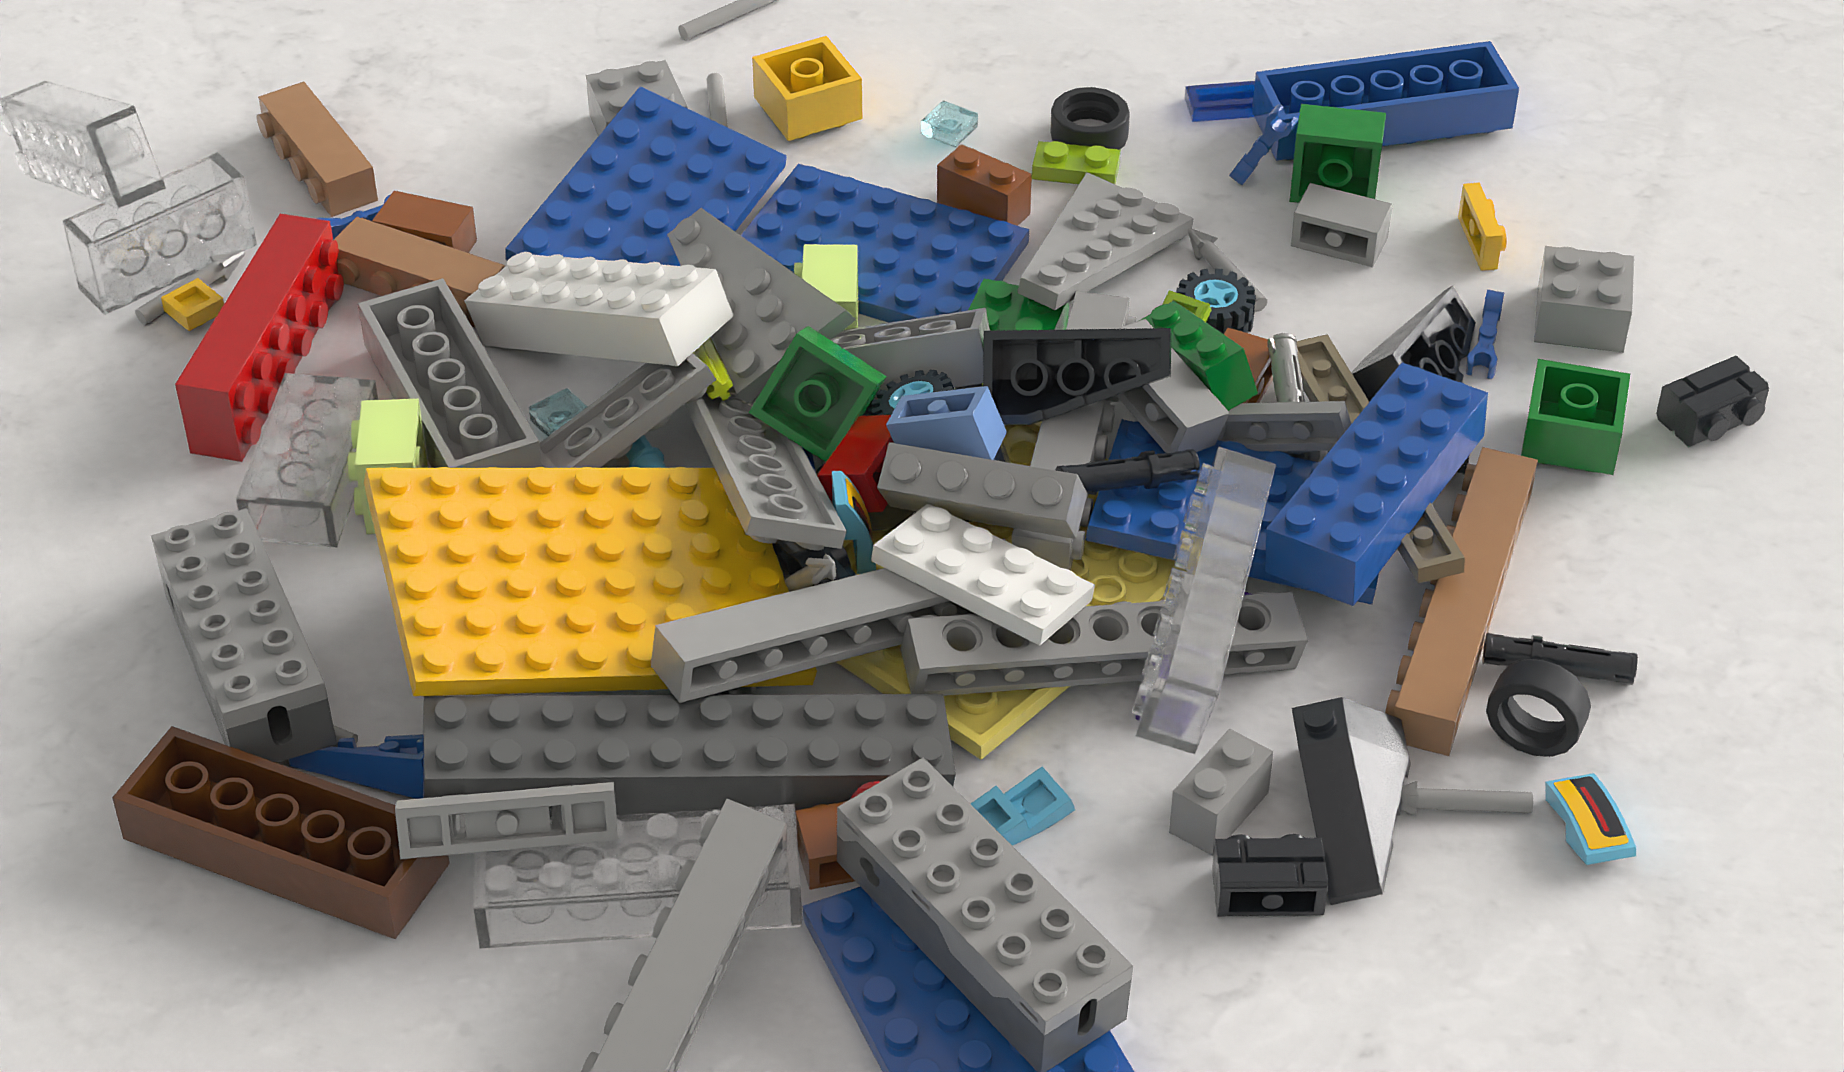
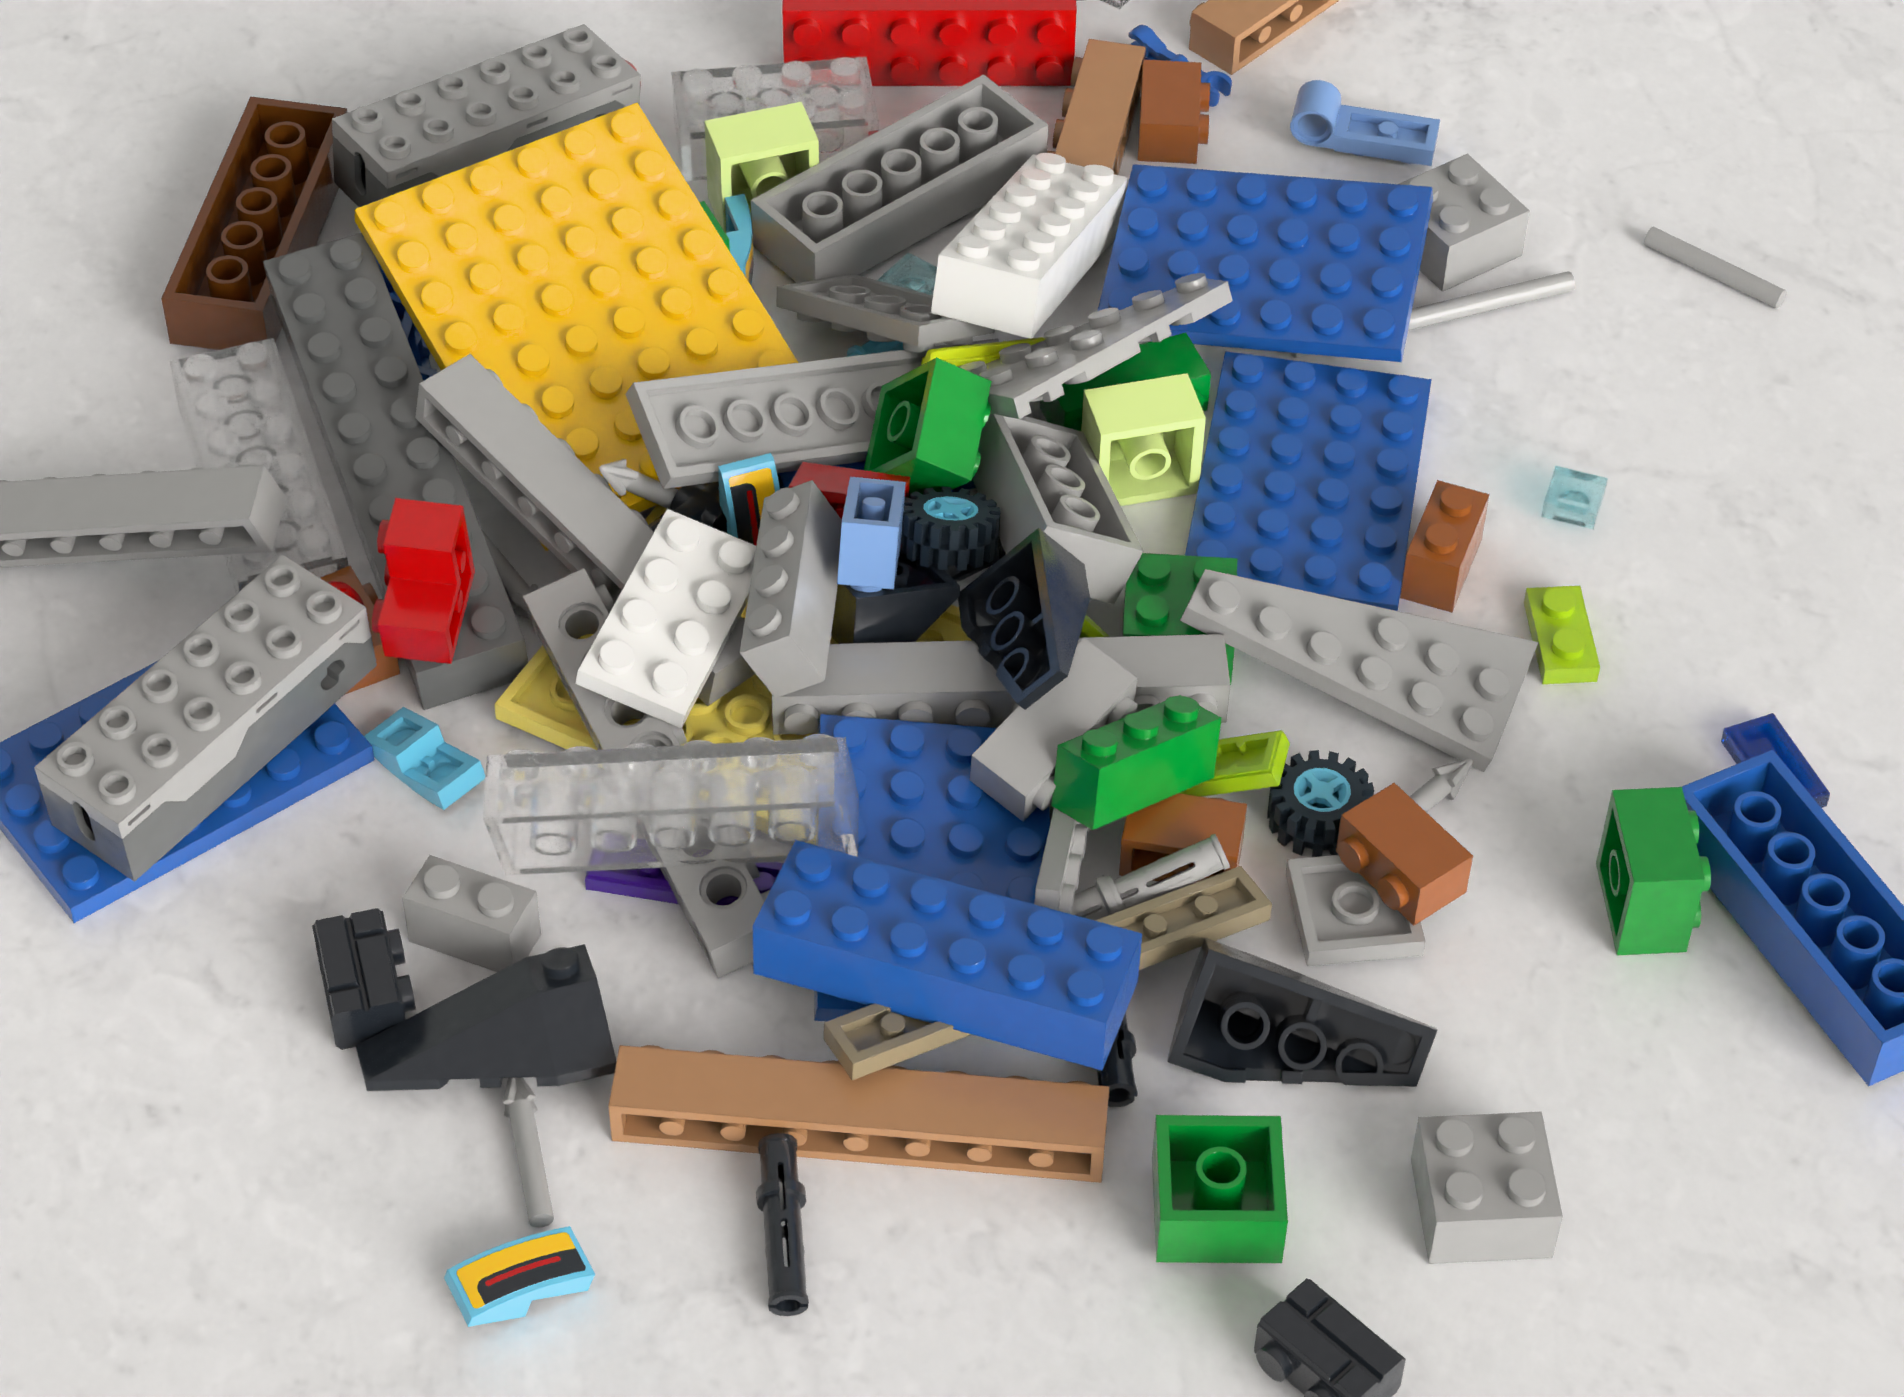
camera: 75 degrees right, 5 degrees up
(501, 135) = (1360, 131): none -> medium blue plate
(506, 820) = (241, 323): light grey hinge -> none
(807, 88) = (1559, 348): yellow brick -> none
(896, 718) = (426, 578): none -> red brick
(1090, 104) = (1645, 598): black tyre -> none
(1146, 470) = (910, 741): black pin -> none
(1273, 131) = (1628, 773): blue piece -> none
(1298, 260) = (1403, 854): none -> dark orange brick
(1318, 307) = (1344, 916): none -> light grey plate
(1341, 224) = (1540, 909): light grey brick -> none
(1481, 227) = (1603, 1059): yellow plate -> none
(1484, 351) = (1442, 1095): blue piece -> none
(1547, 683) = (655, 1188): black tyre -> none

